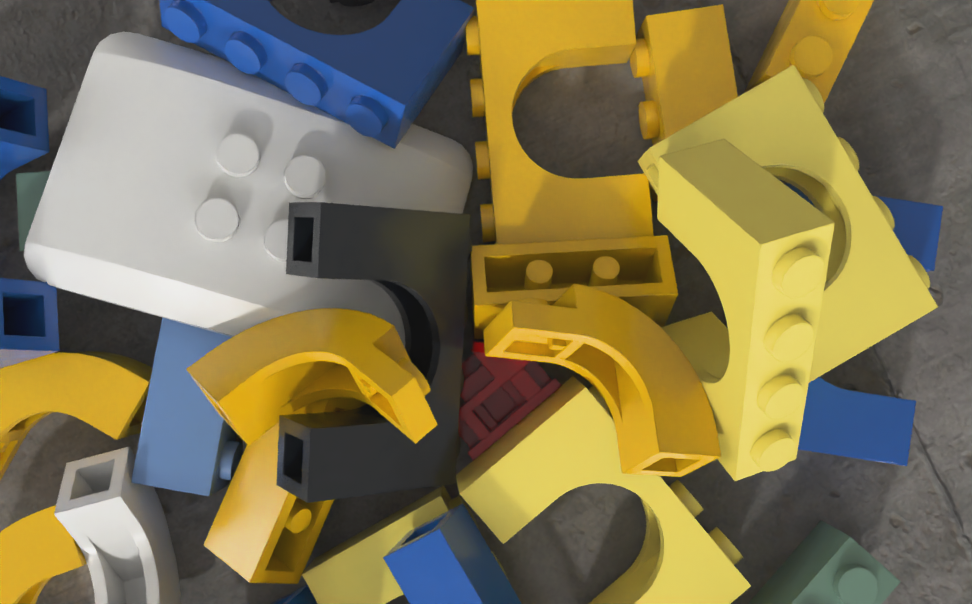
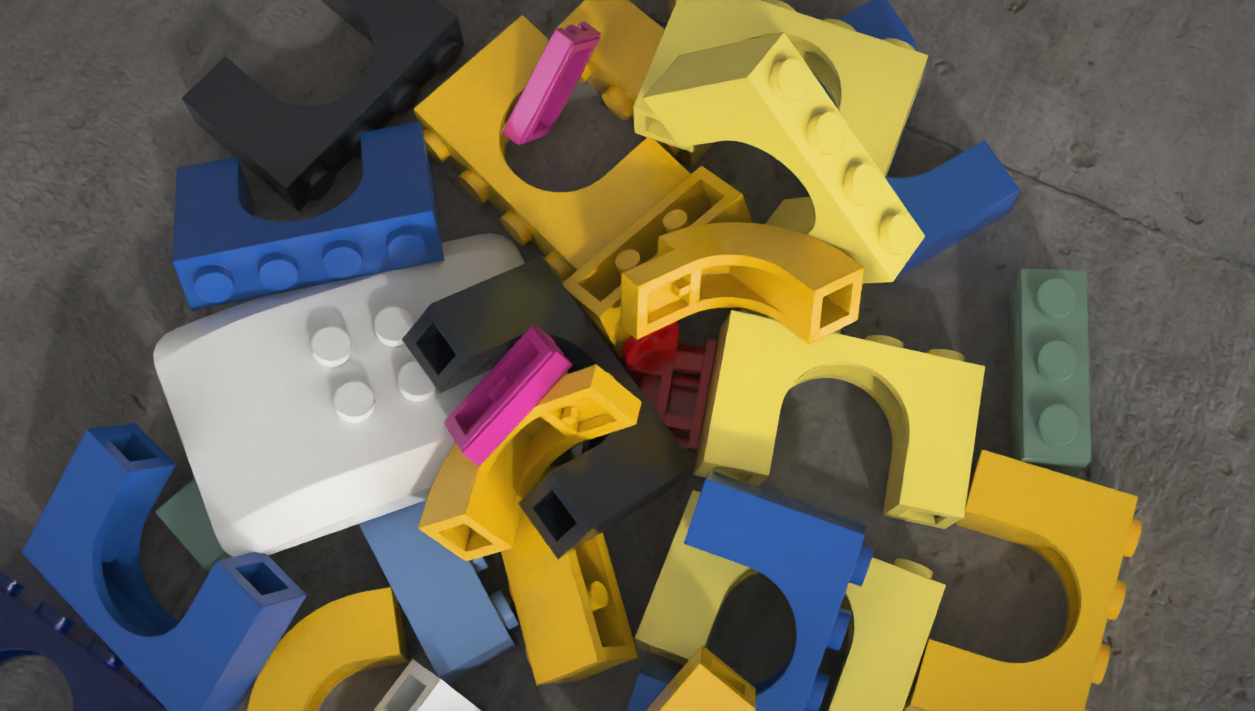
camera: 35 degrees left, 15 degrees down
(335, 324) = (507, 394): none -> dark pink tile
(607, 61) = (552, 82): none -> dark pink tile

